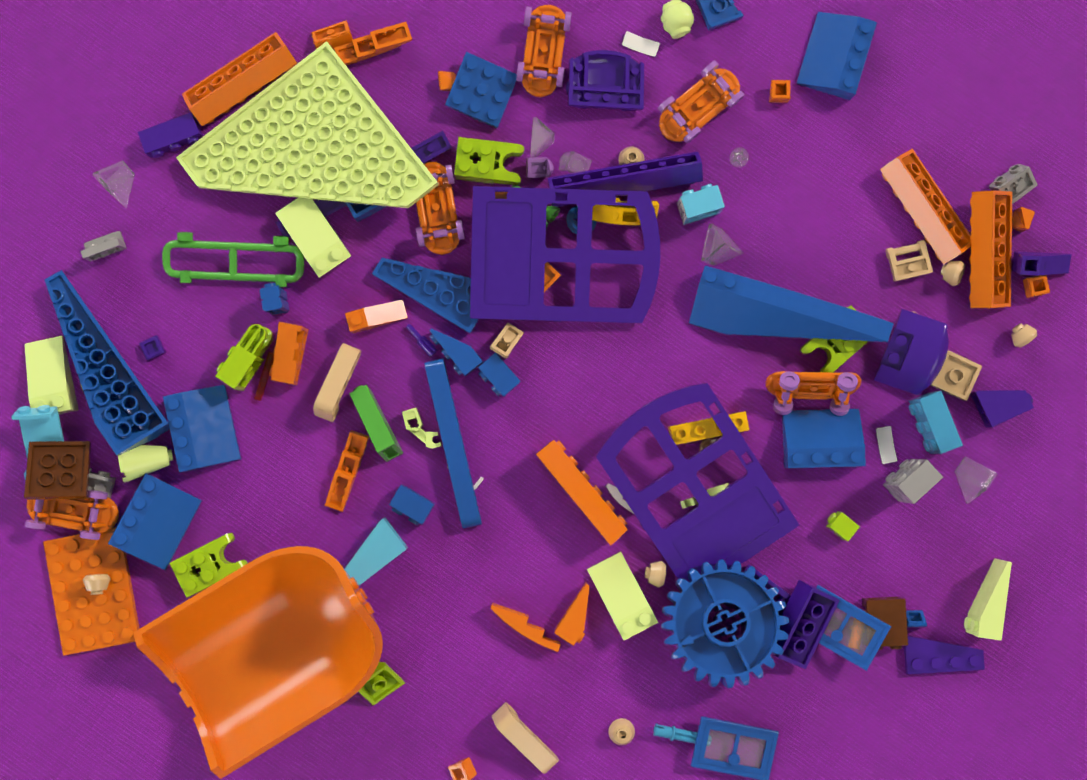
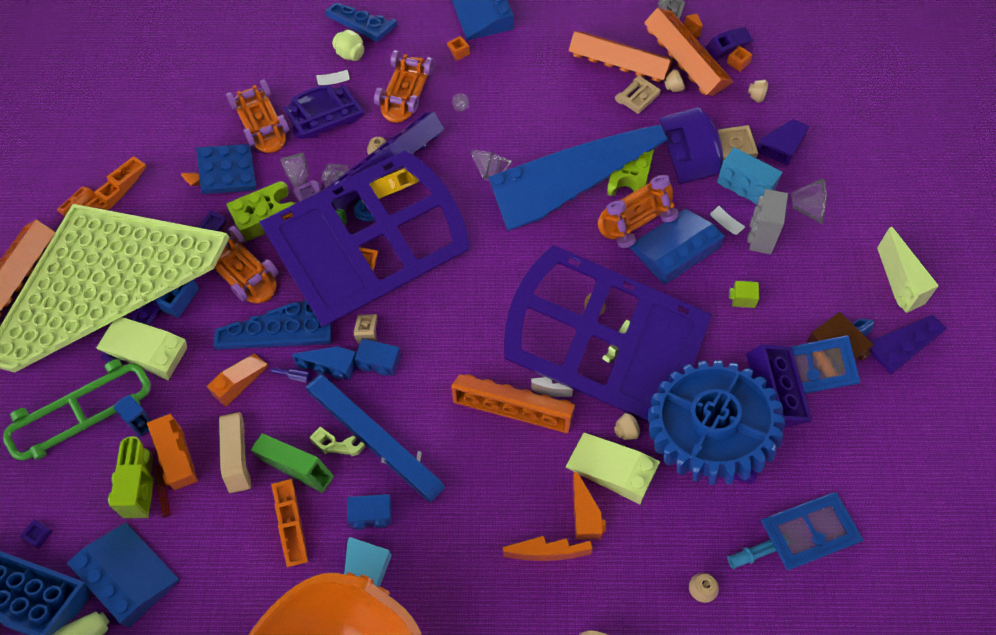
camera: 30 degrees left, 25 degrees down
(700, 204) = (453, 142): medium azure brick -> none
(705, 429) = (575, 293): yellow brick -> none

